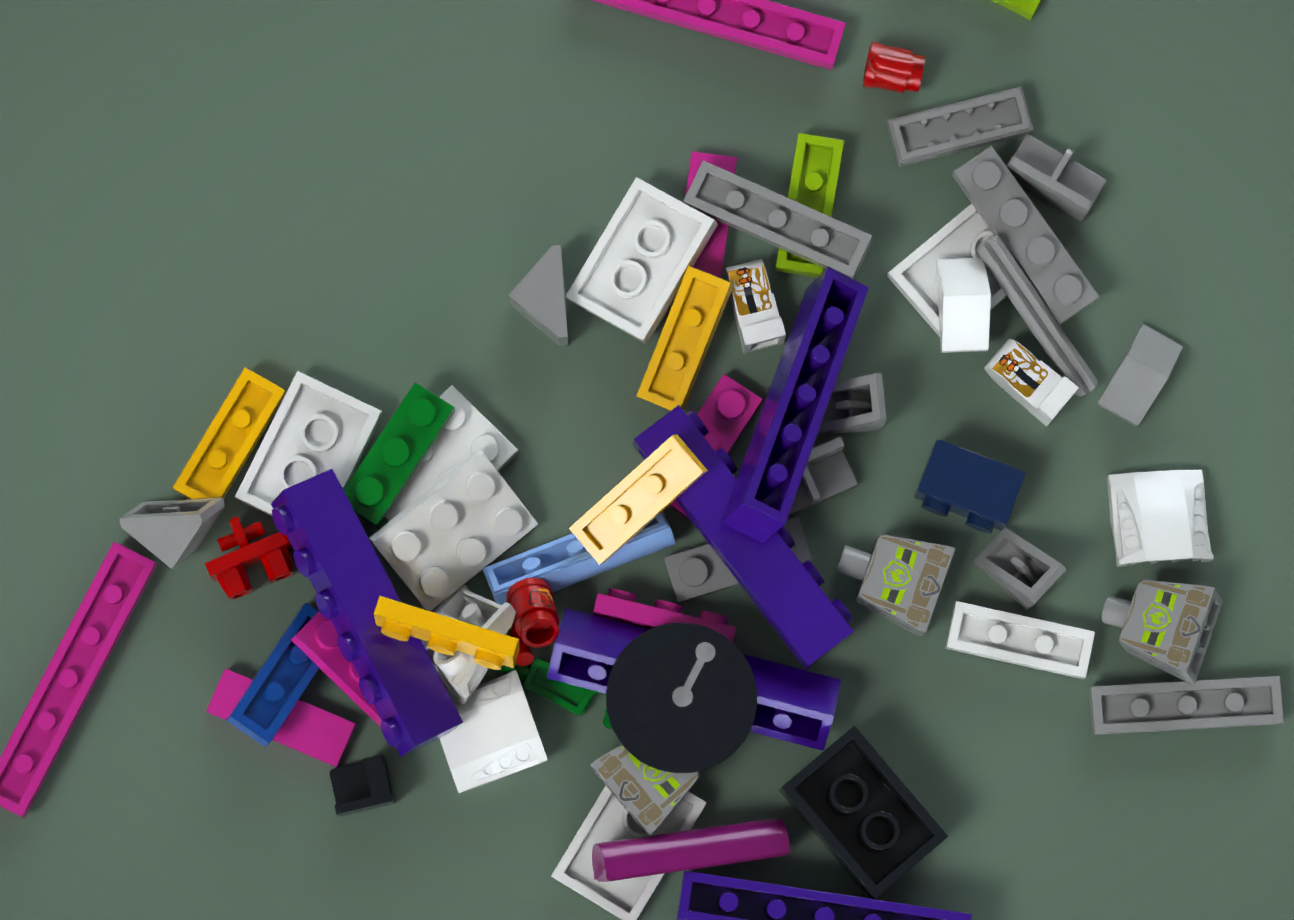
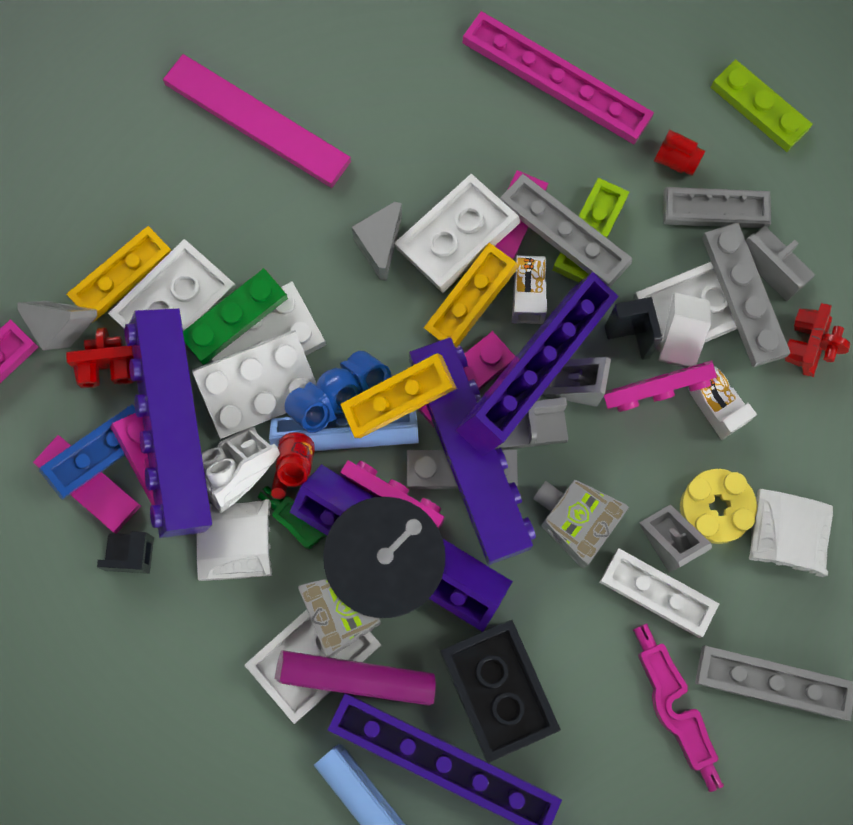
camera: 20 degrees right, 5 degrees down
(332, 181) = (257, 121): none -> dark pink tile
(446, 634) = (217, 451): yellow plate -> none
(538, 536) = (317, 405): none -> blue piece
(898, 308) = (636, 318): none -> black panel
(952, 386) = (661, 386): none -> dark pink plate
(969, 486) = (653, 464): dark blue brick -> none
(1036, 314) = (738, 352): light grey axle -> none
(1074, 486) = (732, 489): none -> light yellow plate
(1096, 787) = (686, 726): none -> dark pink piece
(1127, 246) = (818, 325): none -> red hips
(1140, 375) = (803, 423): light grey slope -> none
(1166, 624) = (777, 615): light grey torso -> none

